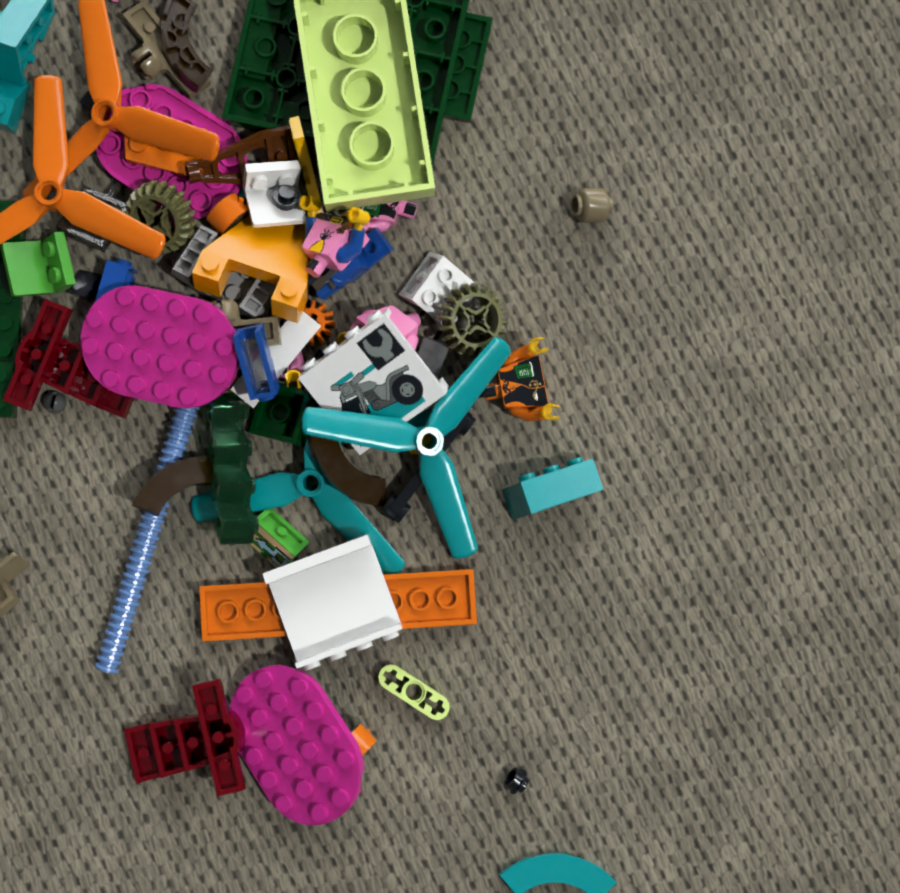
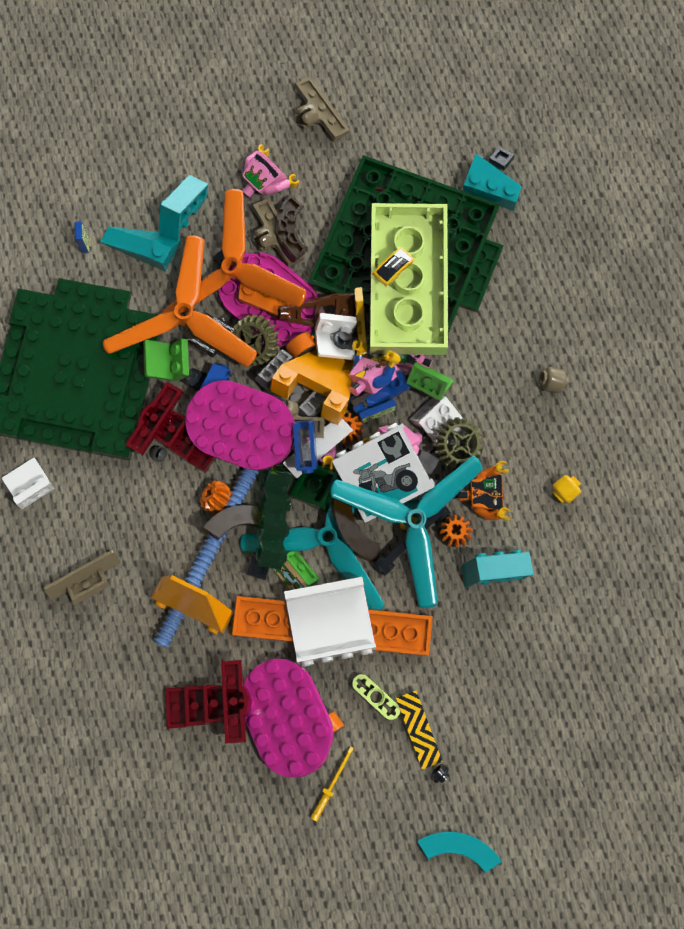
camera: 15 degrees right, 10 degrees down
(144, 453) = (215, 497): none -> orange gear
(168, 618) = (193, 602): none -> light orange wedge
(215, 548) = (257, 571): none -> black plate
(337, 80) = (393, 266): none -> slope
(351, 291) = (377, 411): none -> blue tile
(369, 831) = (327, 793): none -> yellow sword
(418, 237) = (429, 381): none -> bright green bracket
(479, 725) = (419, 729): none -> sticker
(497, 444) = (448, 528): none -> orange gear
(632, 359) = (566, 489): none -> yellow head

